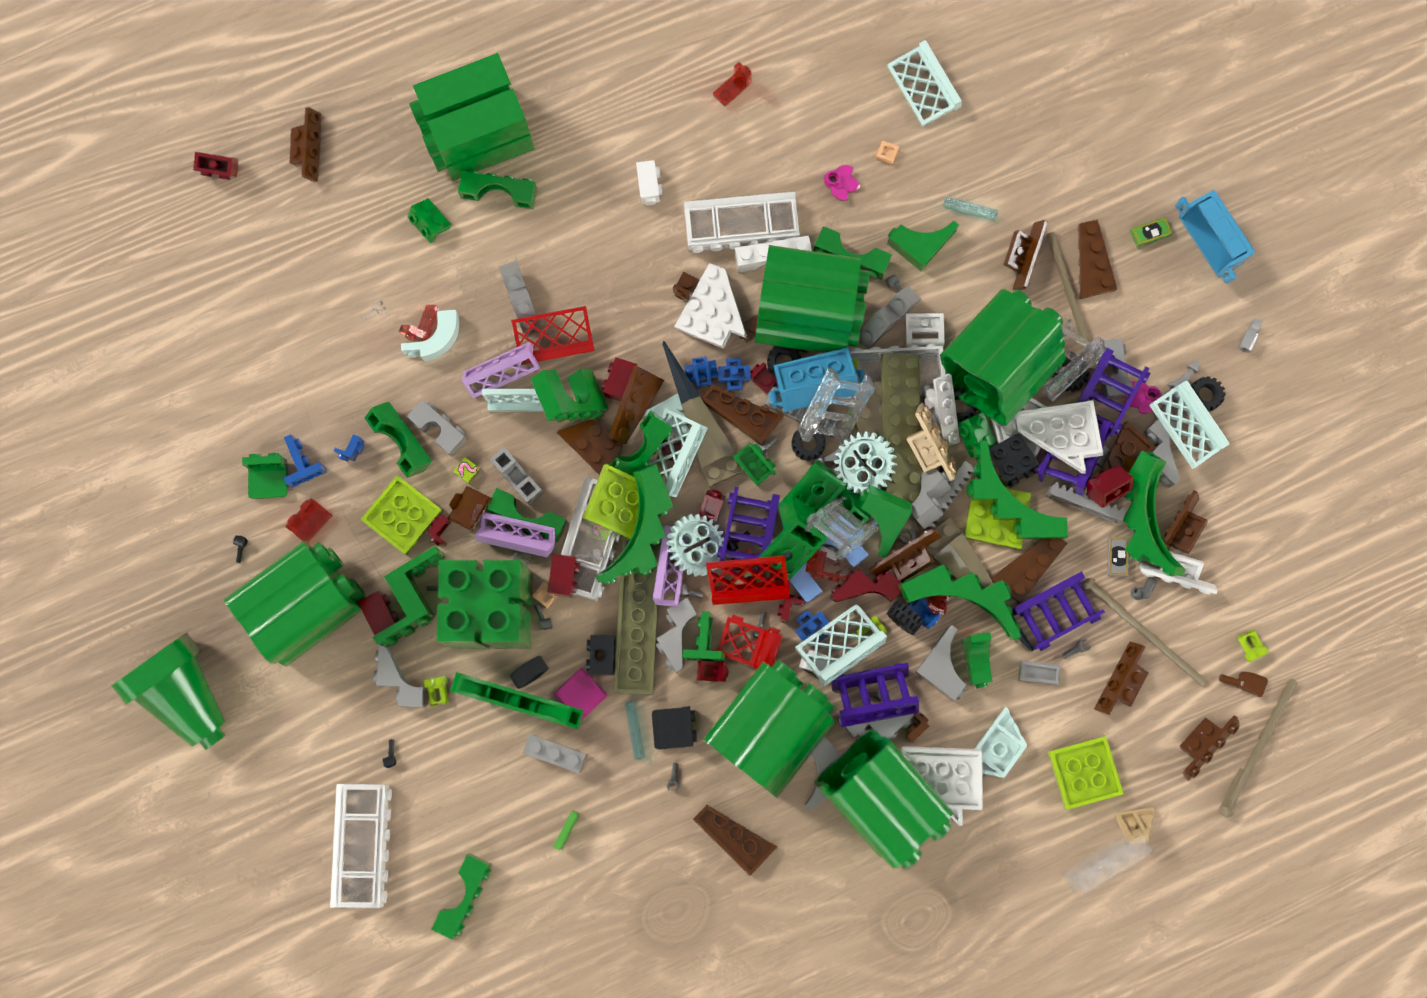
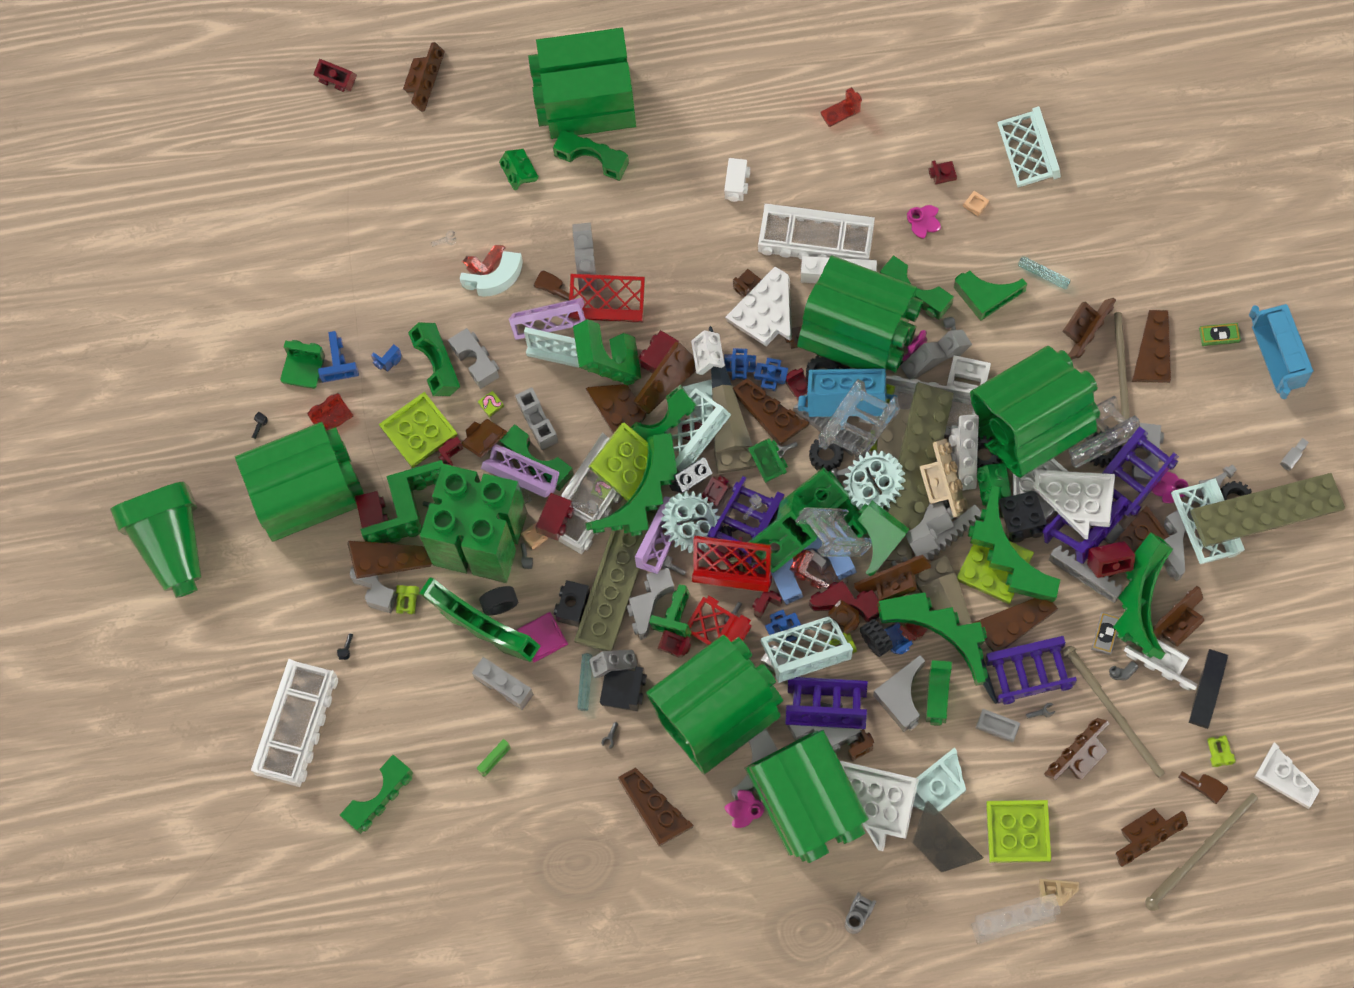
camera: 20 degrees right, 10 degrees down
(404, 657) = (385, 558): none -> reddish brown wing
(493, 332) = (551, 284): none -> reddish brown piece
(657, 705) = (612, 661): none -> light grey bracket
(667, 368) = (707, 351): none -> white bracket
(685, 499) = (691, 475): none -> bracket
(755, 510) = (756, 503): none -> clear hand
(822, 819) = (741, 809): none -> dark pink plate
(847, 128) = (942, 172): none -> dark red bracket
(870, 310) = (916, 343): none -> dark pink plate
(870, 602) = (845, 615): none -> reddish brown bracket
(957, 890) = (860, 910): none -> light grey piece
(1017, 802) = (942, 842): none -> clear smoke wing
(1228, 588) = (1208, 689): none -> black slope
(1241, 399) = (1267, 509): none -> olive plate
(1316, 655) = (1283, 776): none -> white wing

